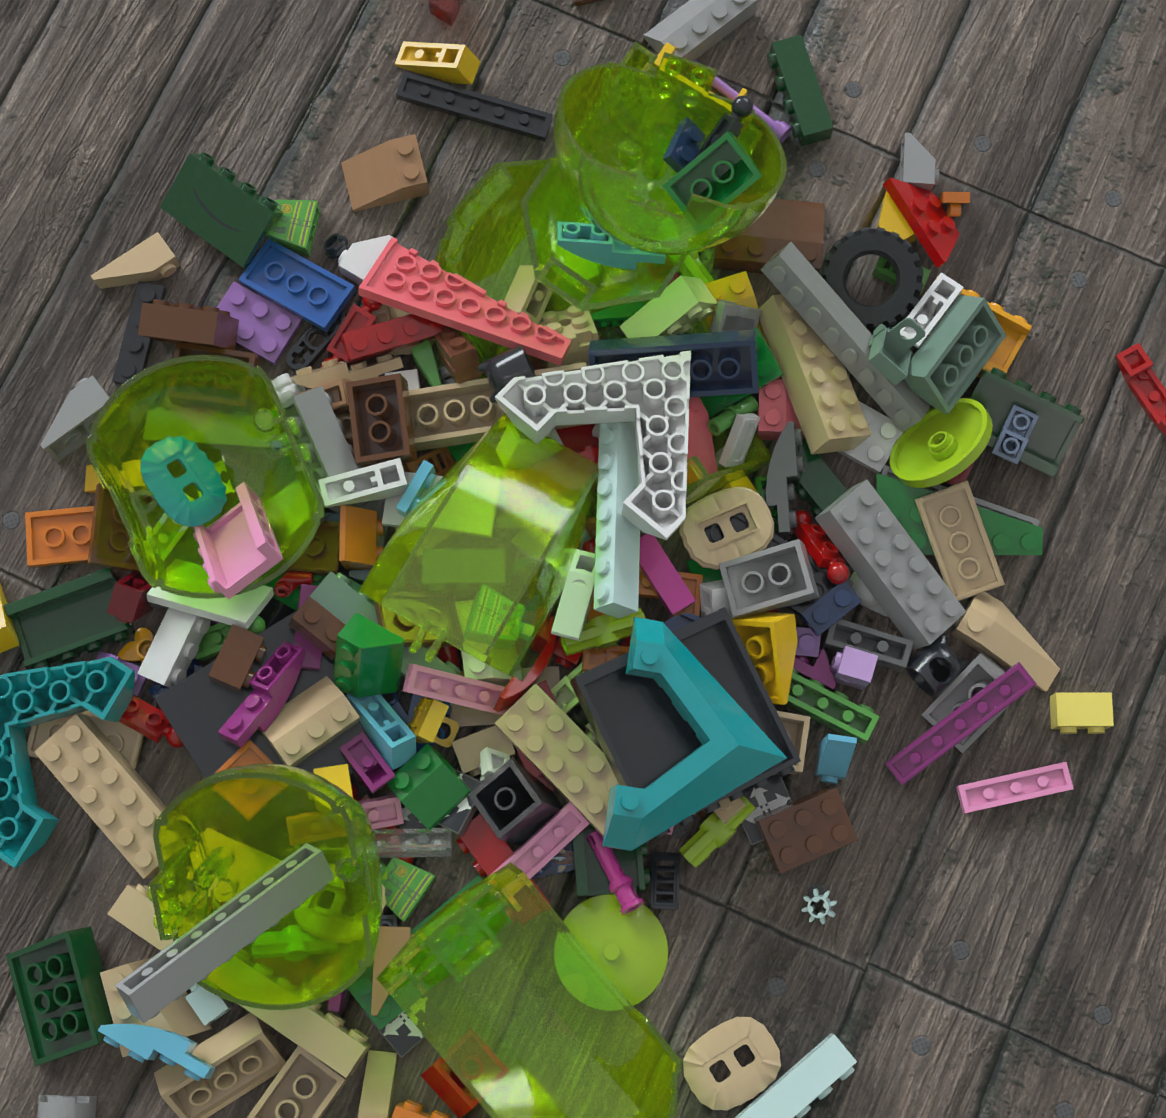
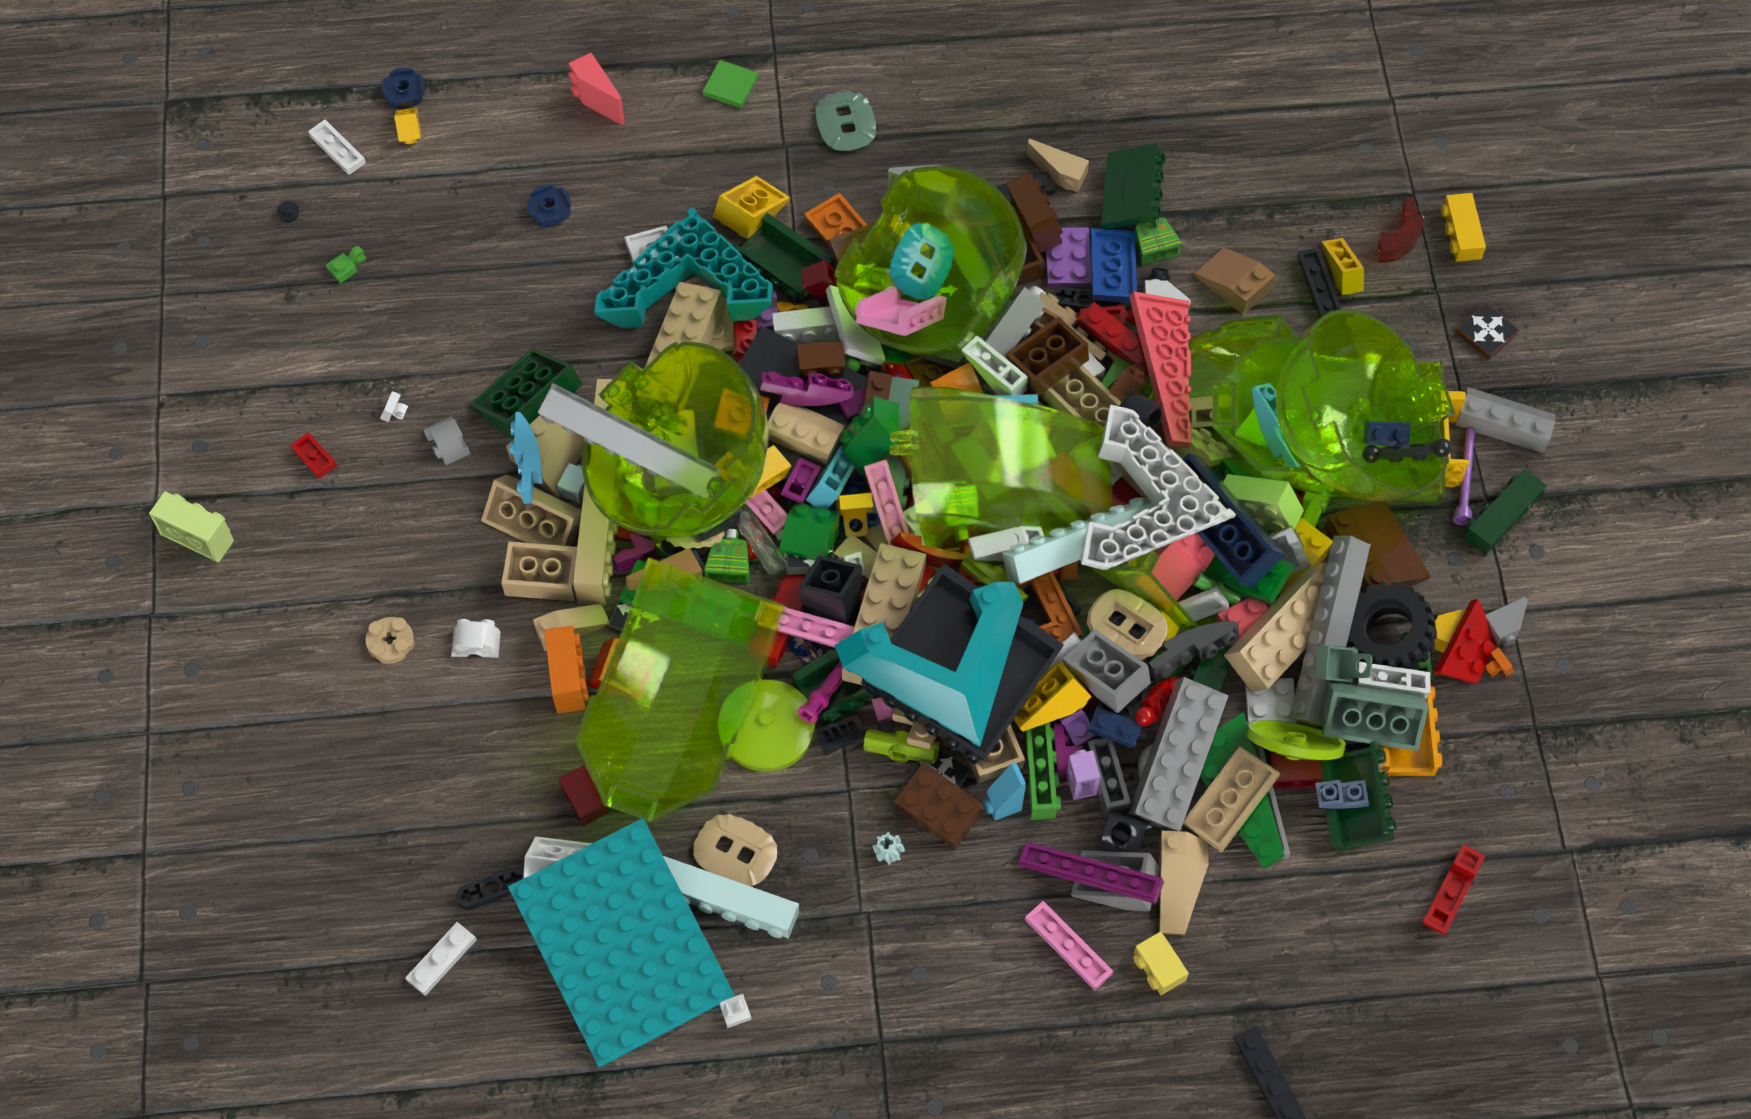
camera: 60 degrees right, 15 degrees down
(663, 576) = (1063, 601): dark pink tile -> none
(717, 173) = (1378, 452): green slope -> none

